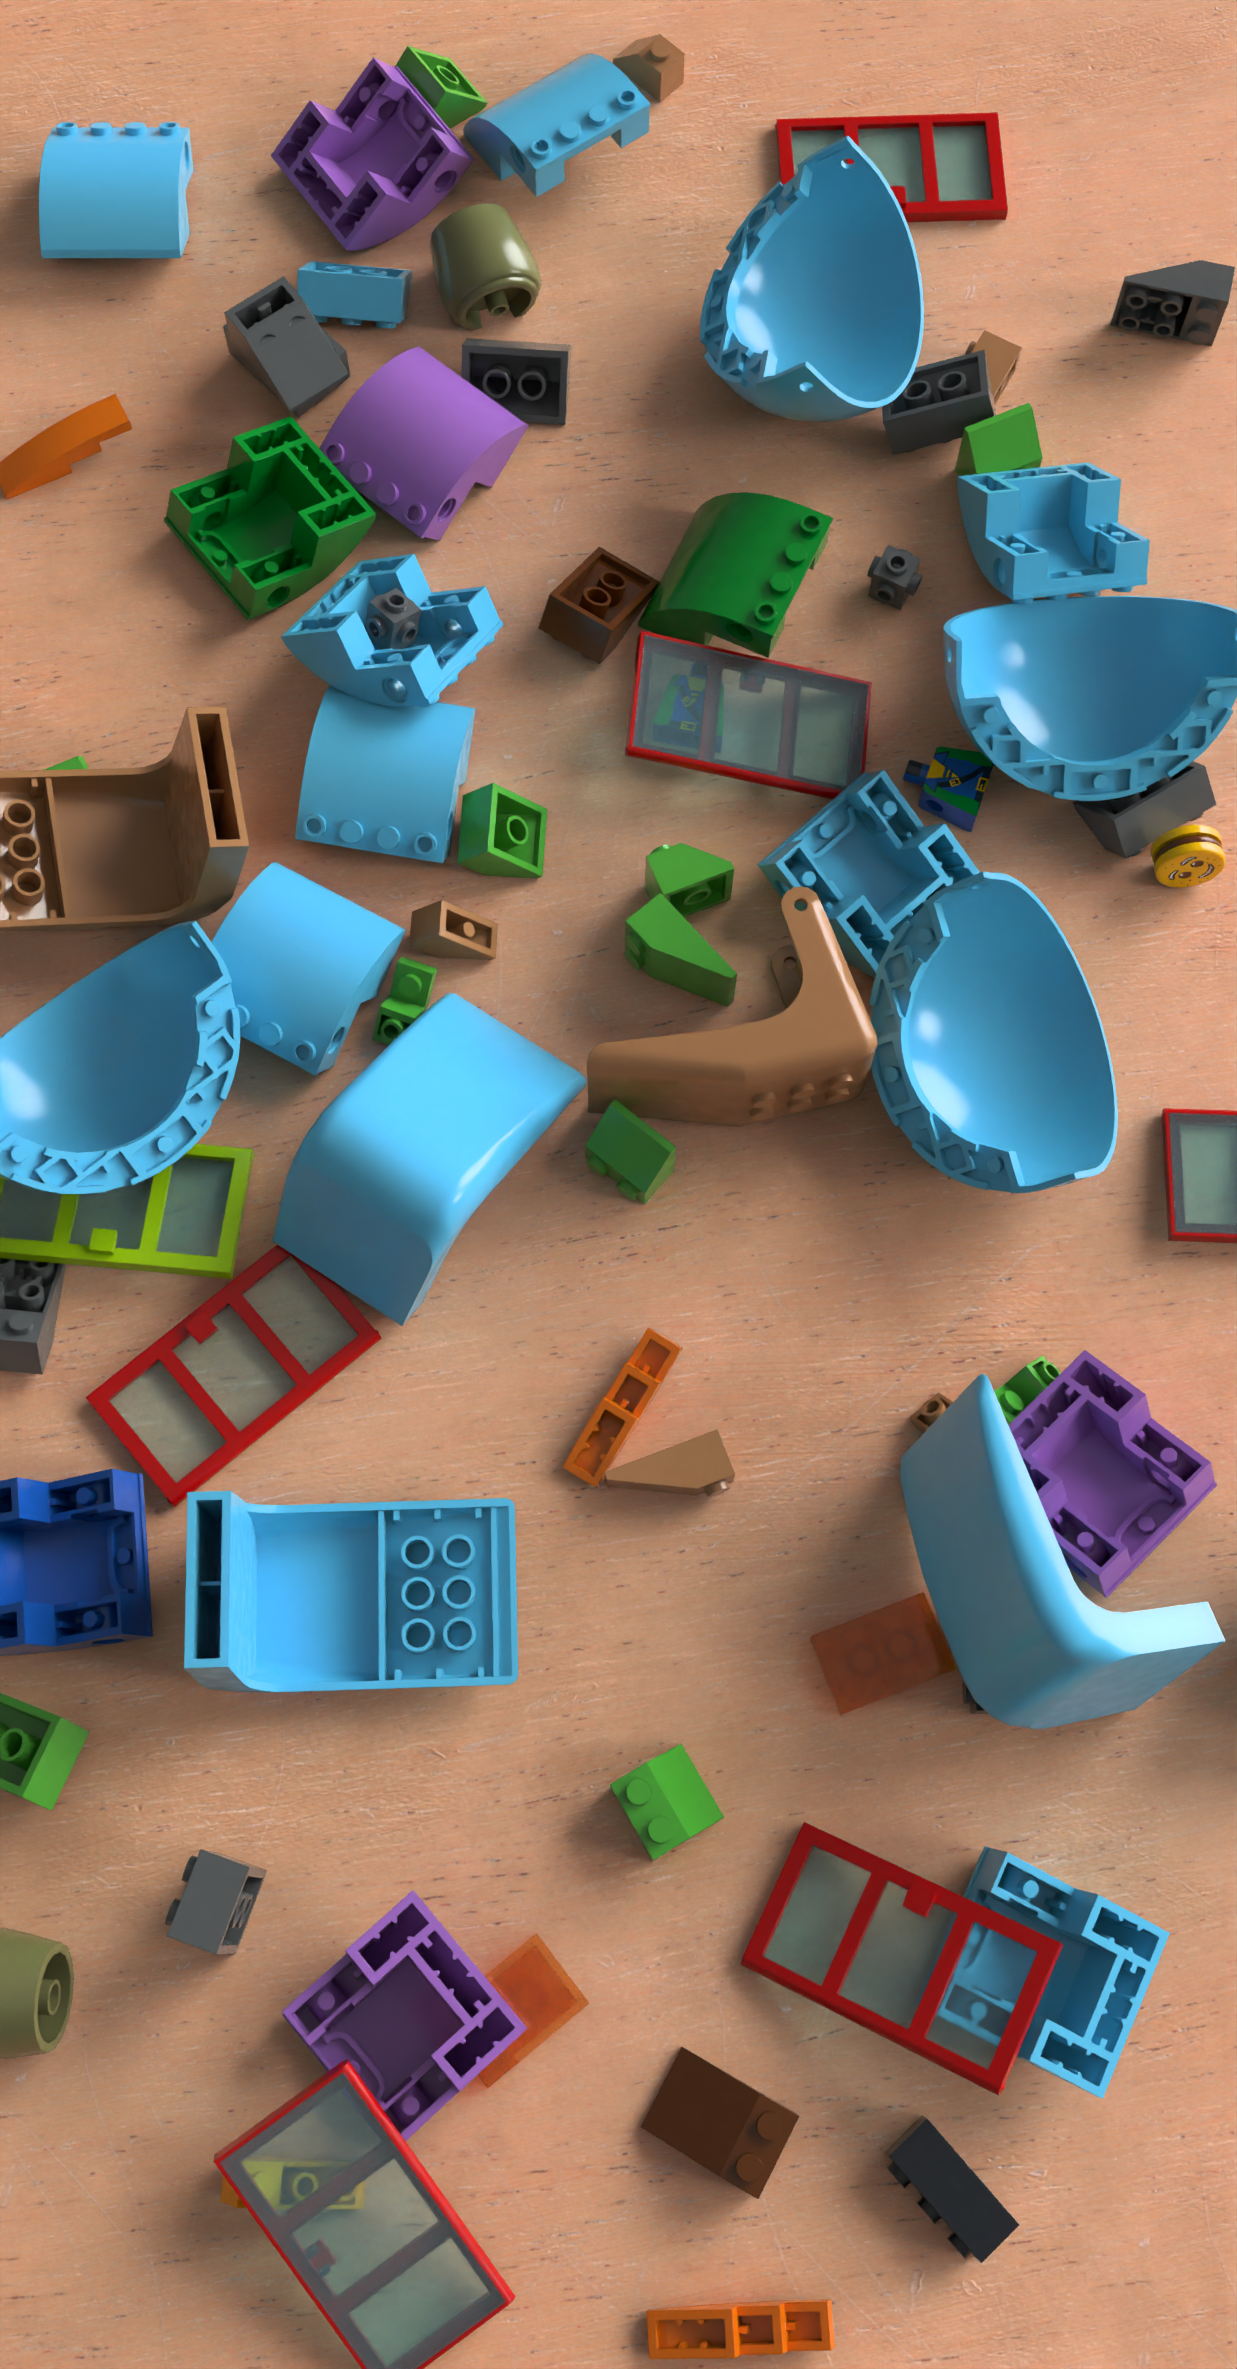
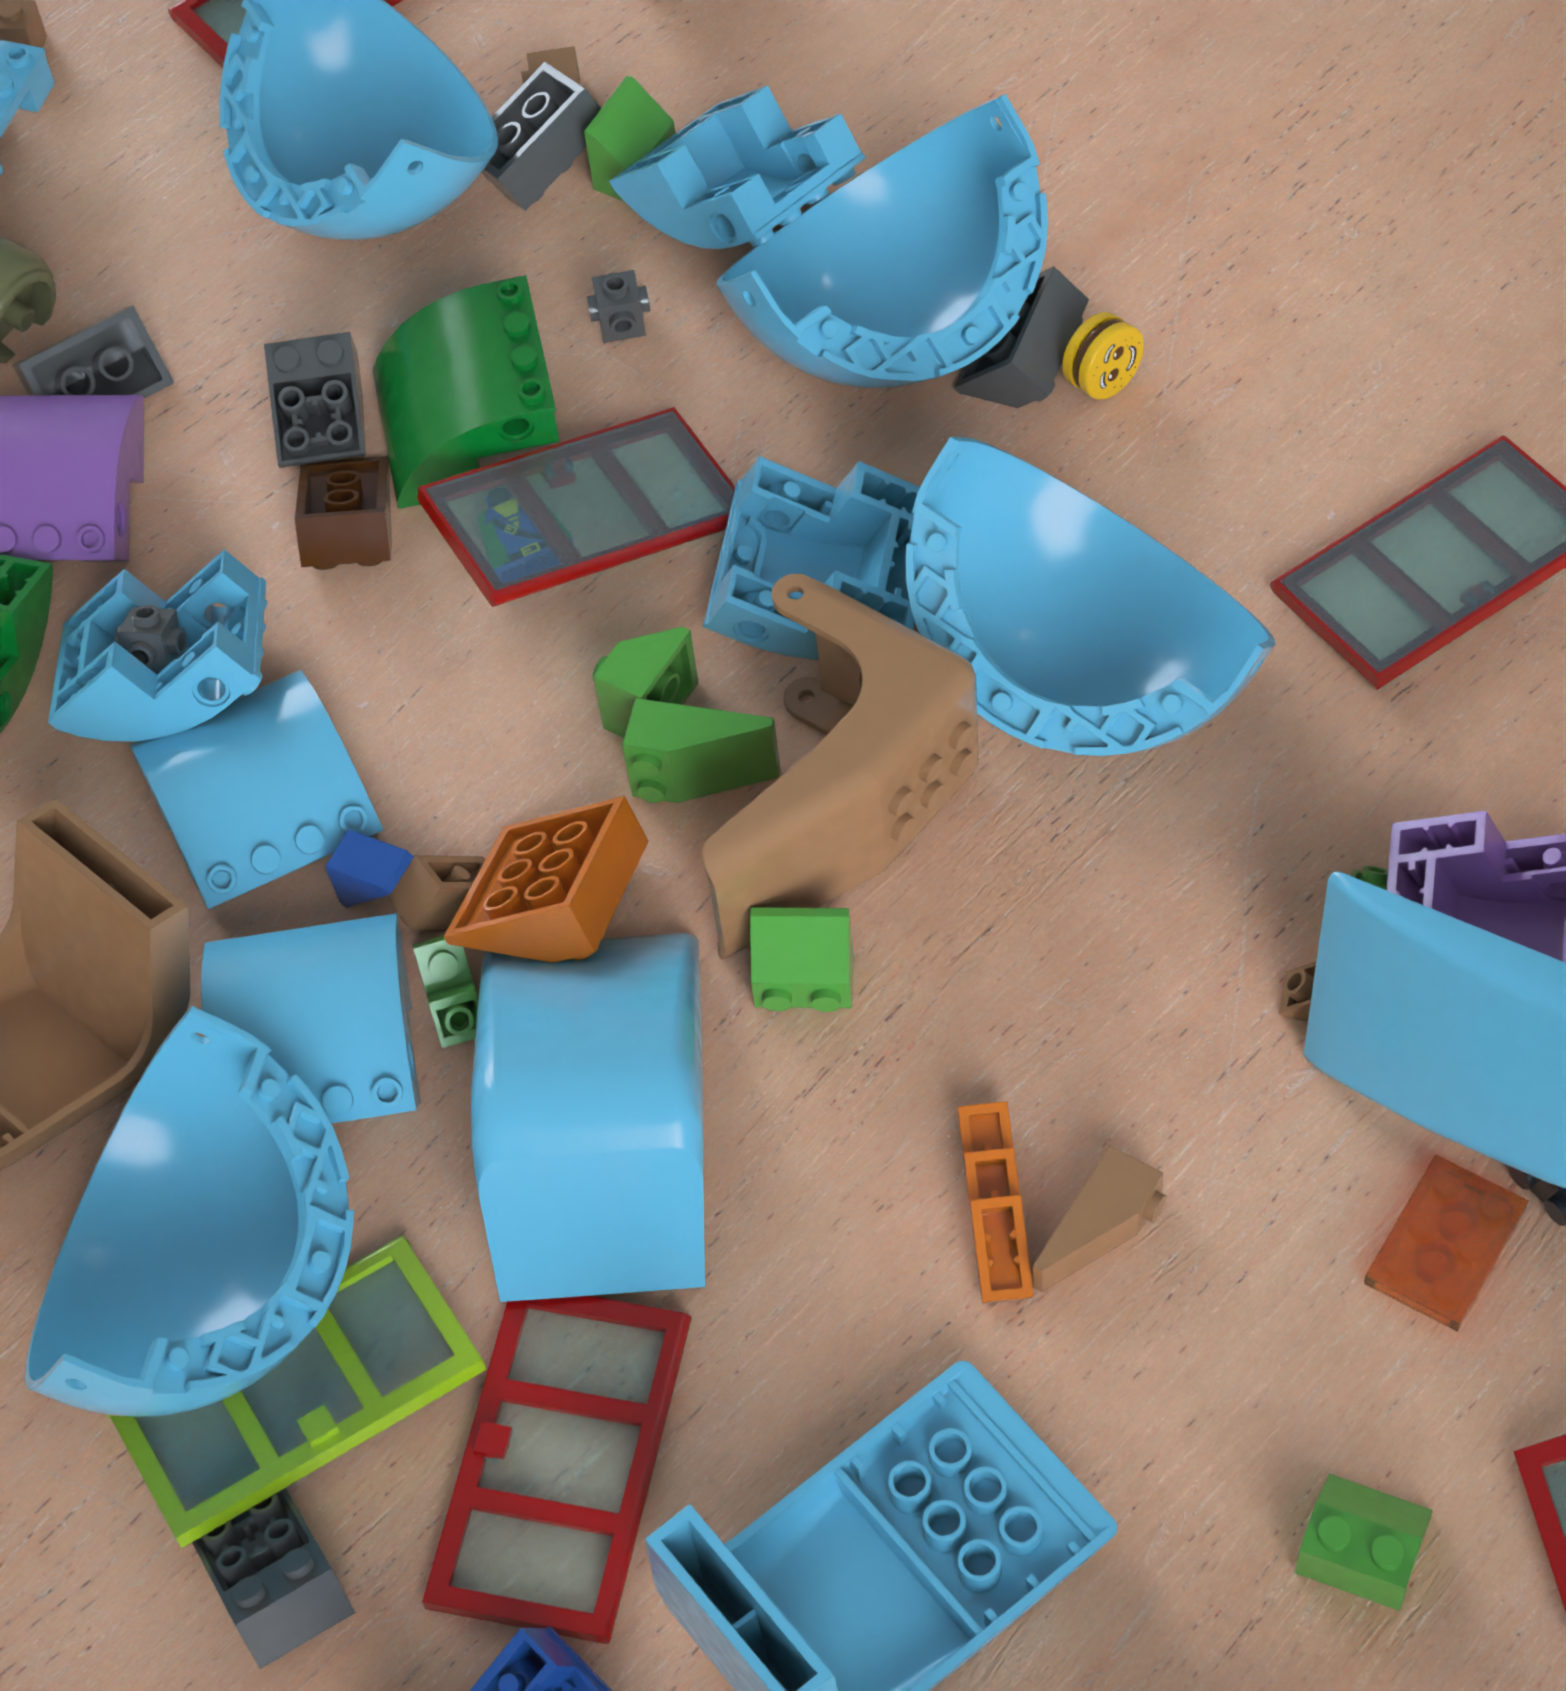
camera: 30 degrees left, 15 degrees down
(409, 883) = (365, 868): none -> blue slope
(502, 833) = (418, 770): bright green slope -> none
(514, 982) = (552, 884): none -> orange slope
(640, 507) = (316, 399): none -> dark grey slope
(951, 784) = (828, 438): torso -> none

